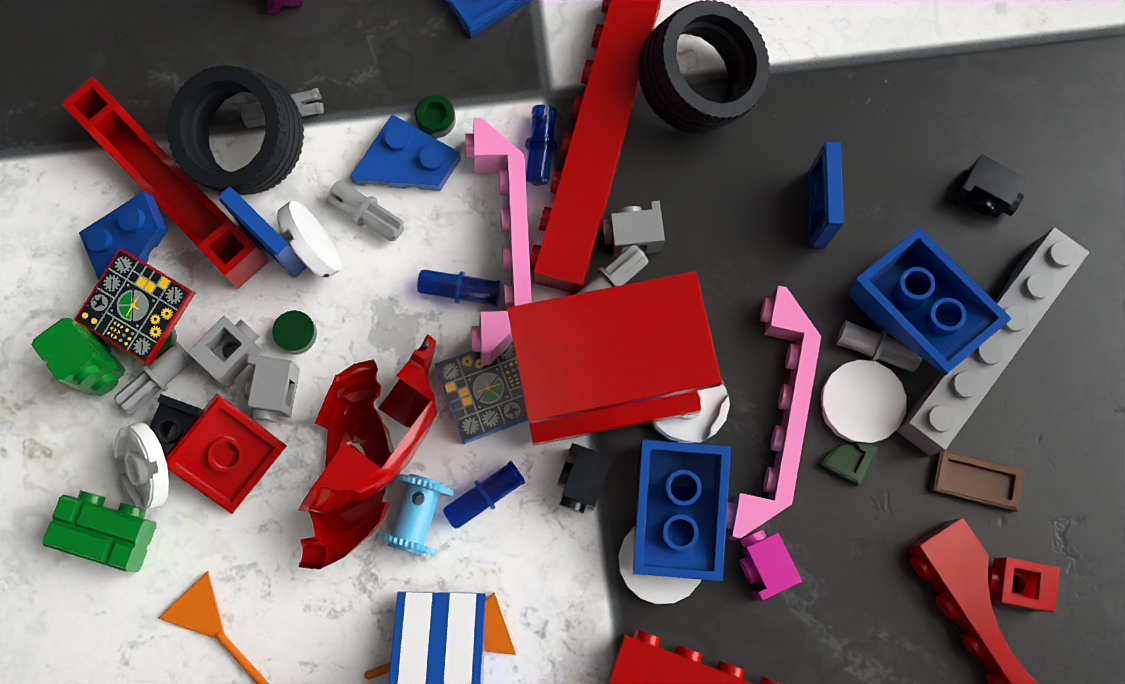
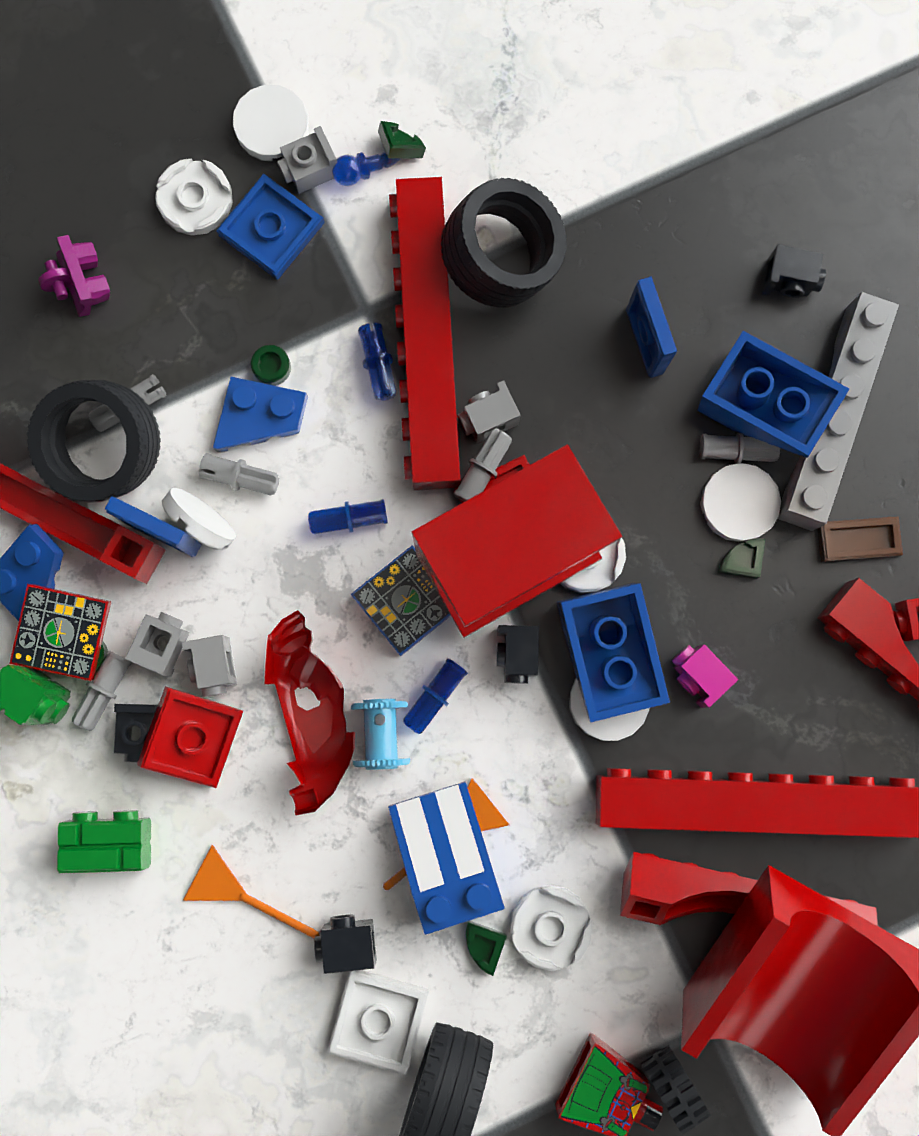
camera: 20 degrees left, 5 degrees up
(144, 465) = (124, 773): white tile -> none
(294, 332) = (213, 606): dark green tile -> none
(350, 472) = (338, 636): red animal -> none
(497, 155) = (338, 384): bright pink slope -> none
(789, 322) = (652, 452): bright pink slope -> none

